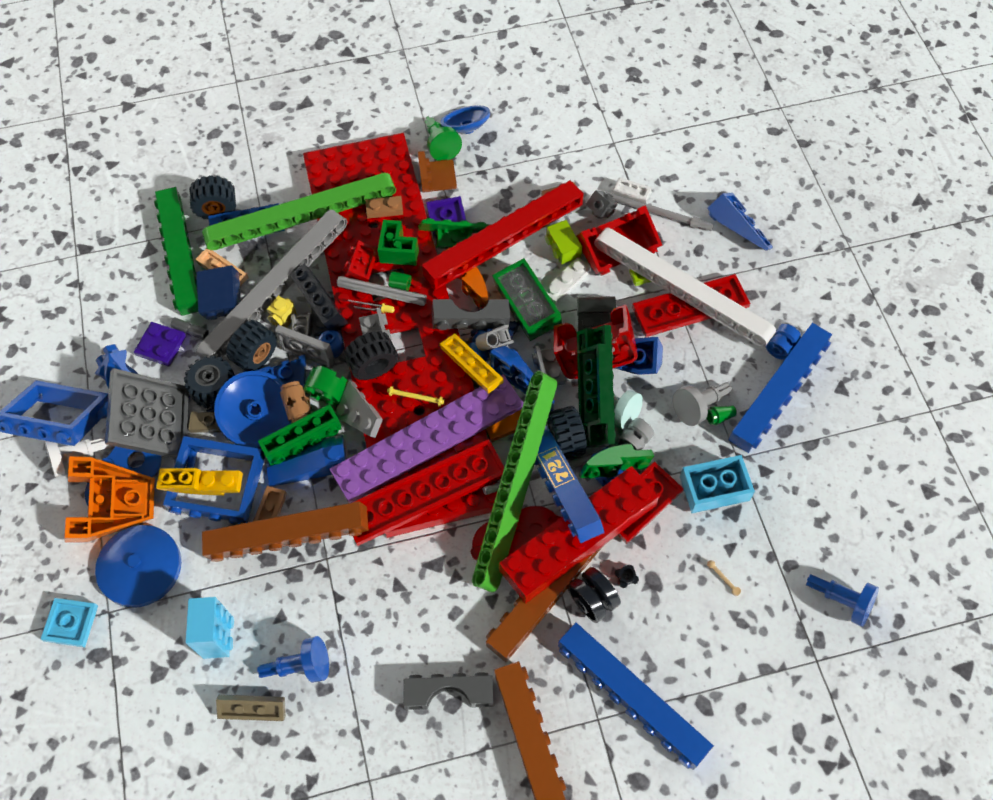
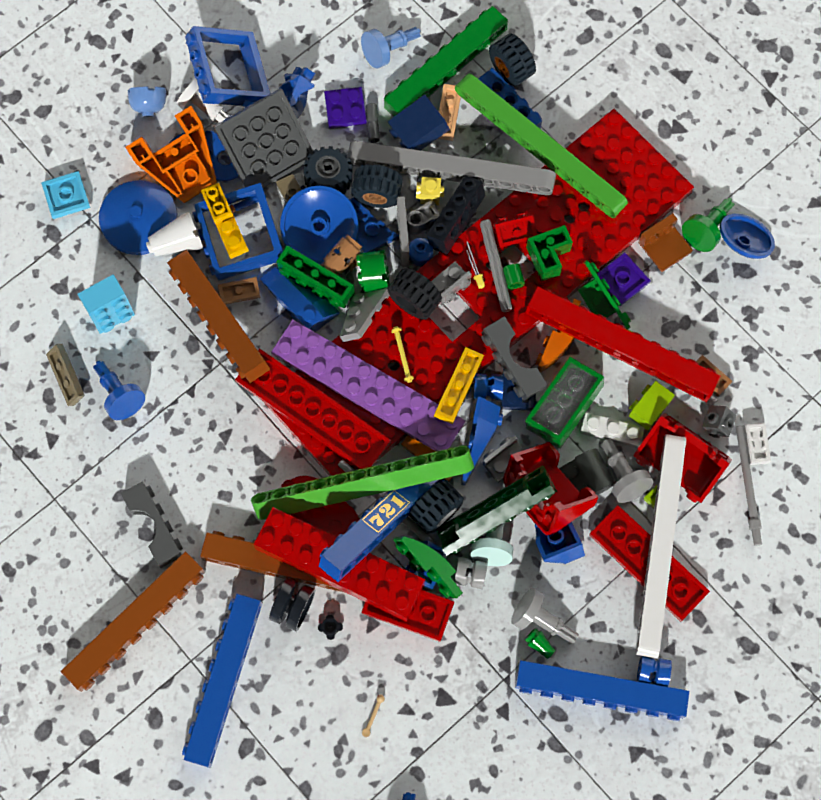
camera: 60 degrees right, 10 degrees up
(31, 500) = (147, 100): none -> medium blue cylinder
(127, 289) = (378, 48): none -> medium blue piece
(183, 535) = (175, 237): none -> white cone
(384, 207) = (590, 217): medium nougat plate -> none
(497, 338) = (501, 396): light grey piece -> none
(620, 284) = (630, 483): none -> light grey piece
(716, 484) = (459, 668): medium azure brick -> none
(730, 213) = (782, 561): blue wedge -> none

